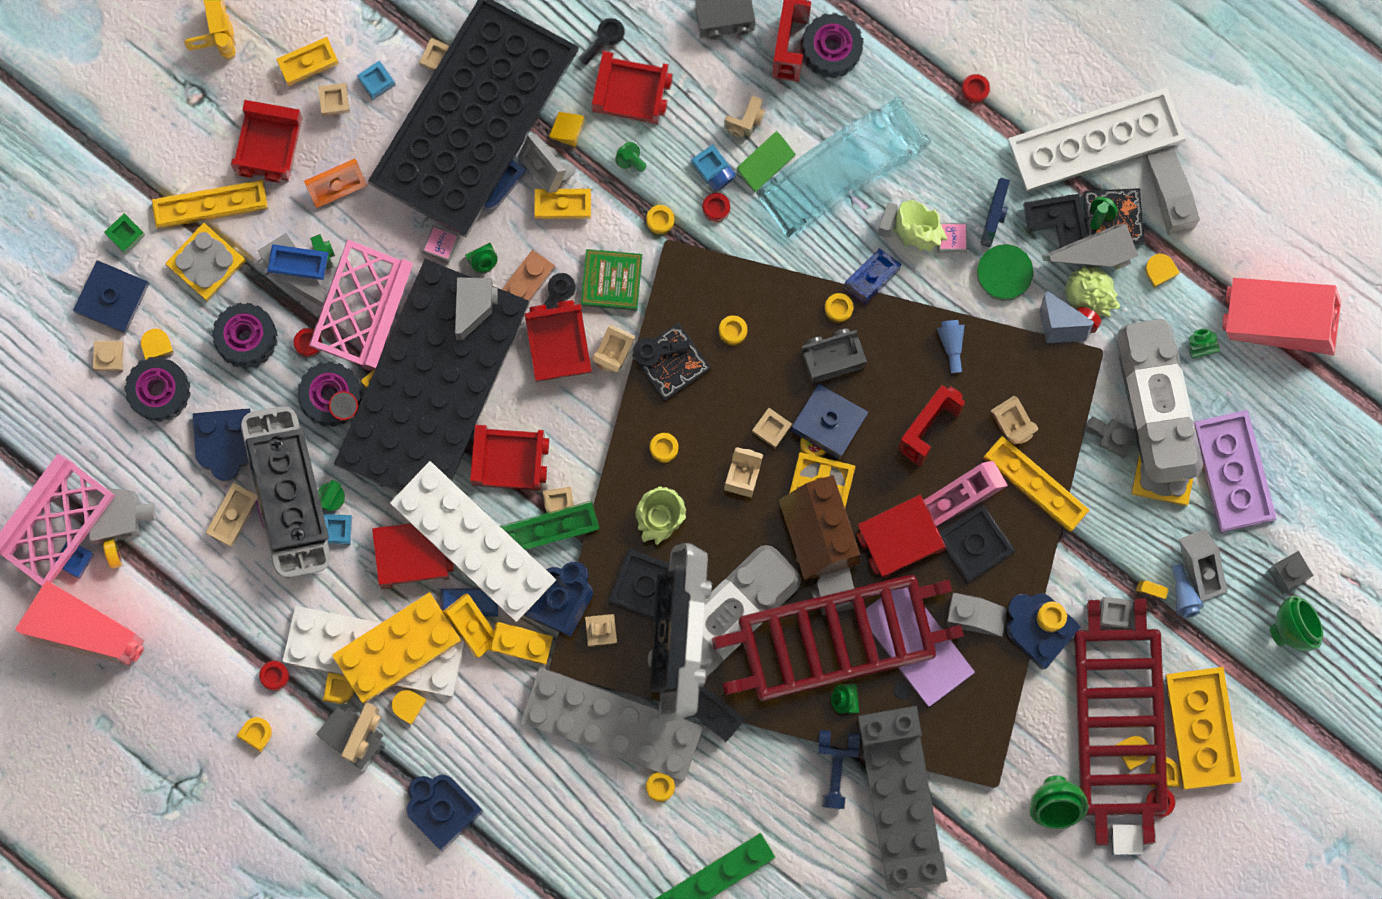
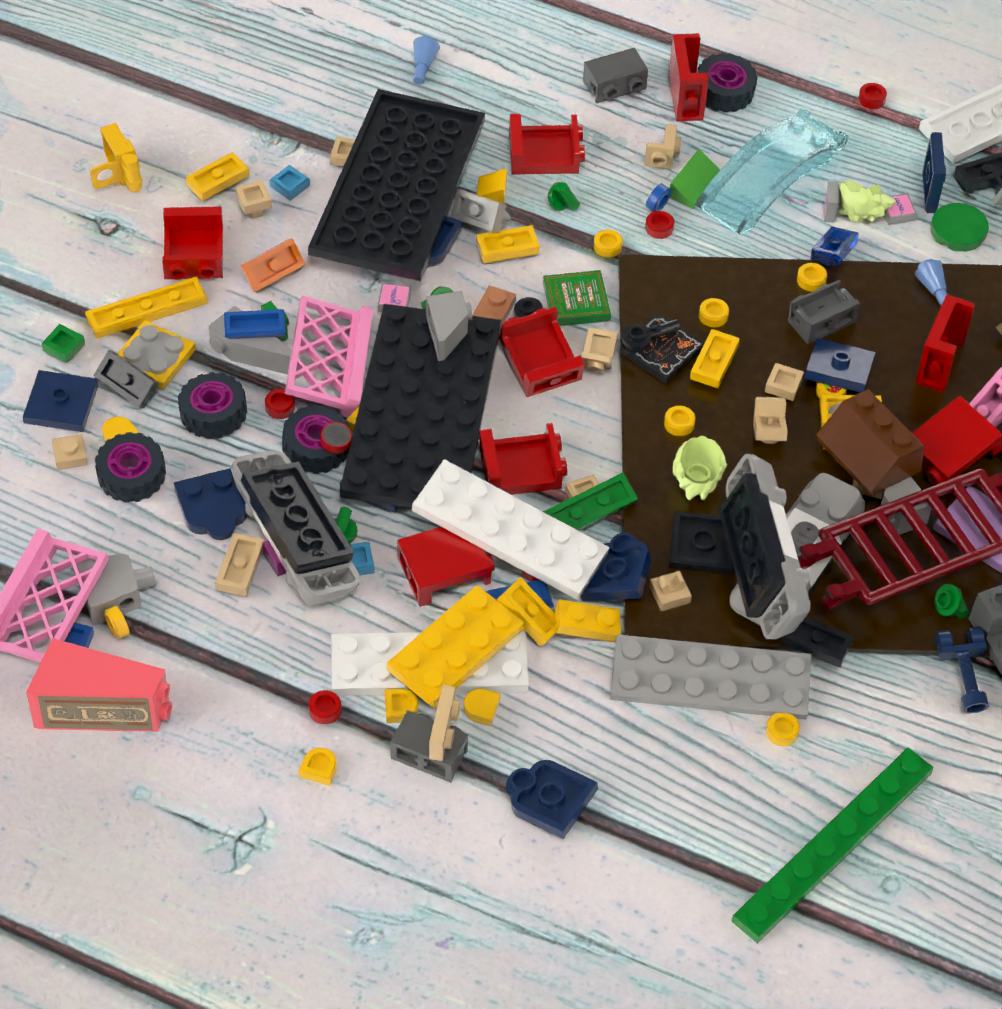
camera: 15 degrees left, 25 degrees down
(172, 289) = (126, 379): none -> plate
(609, 33) = (506, 105): black plate -> none
(709, 163) = (638, 192): dark azure tile -> none
(715, 387) = (714, 358): none -> yellow plate

